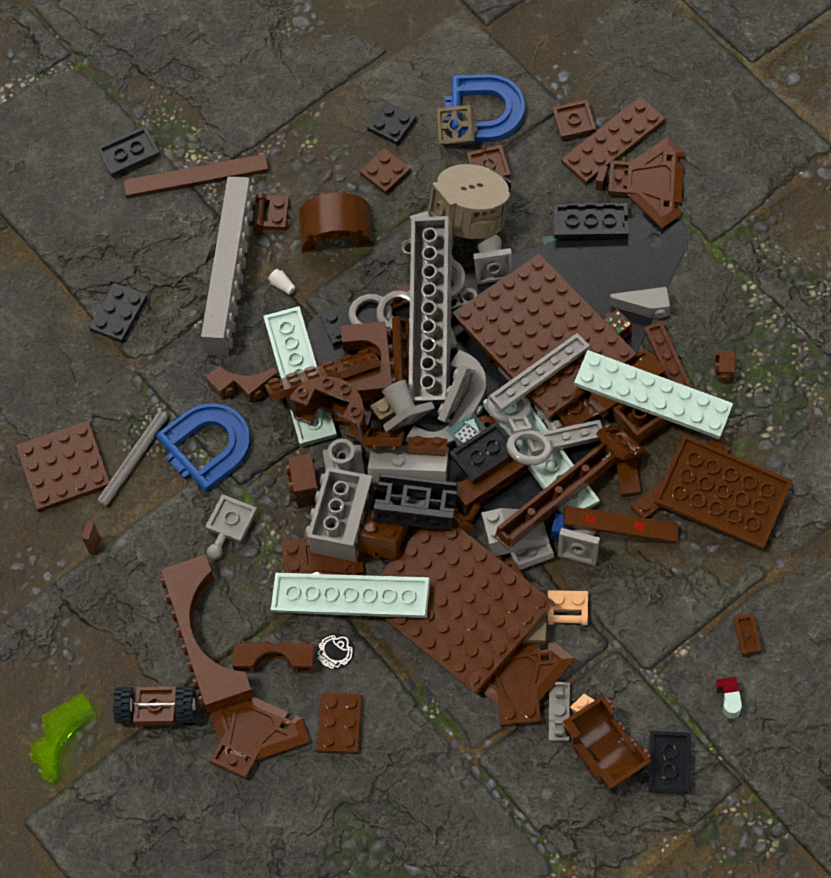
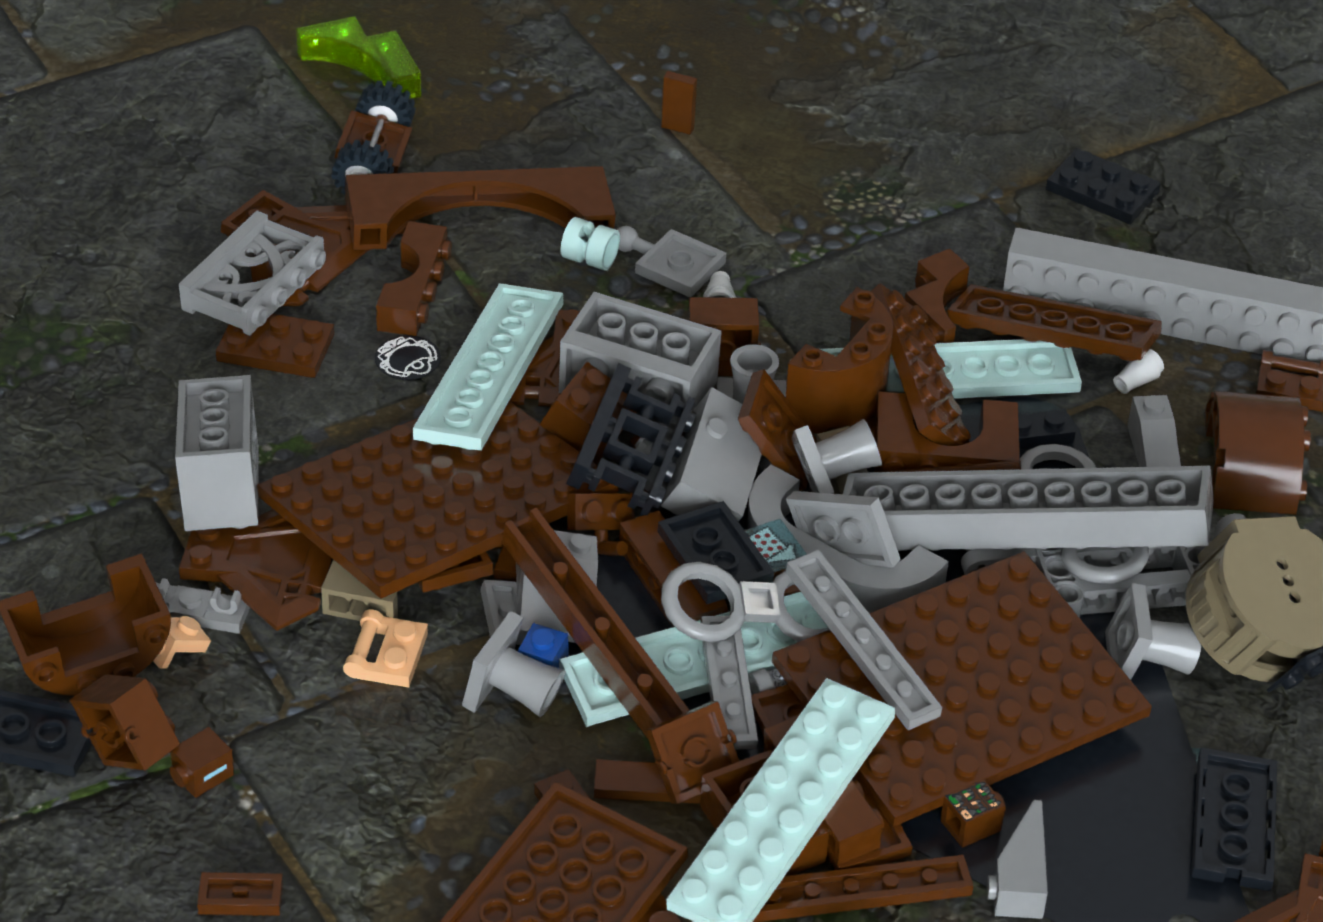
camera: 90 degrees right, 20 degrees down
(63, 466) = (825, 105): reddish brown plate -> none
(132, 458) = (822, 174): light grey axle -> none
(190, 423) = (821, 289): blue piece -> none
(229, 564) = (586, 242): none -> light aqua wheel
(254, 494) = (720, 286): none -> white cone
(257, 320) = (1055, 322): none -> reddish brown plate
(314, 761) = (209, 280): none -> light grey fence
(340, 269) = (1153, 431): none -> light grey slope
(428, 446) = (746, 479): reddish brown plate -> none
(466, 710) = (217, 453): none -> light grey brick
(620, 524) = (518, 729): reddish brown tile -> none
(668, 705) = (125, 721): none -> reddish brown brick
(671, 673) = (201, 762): none -> reddish brown brick
(731, 696) = (122, 841): leg -> none

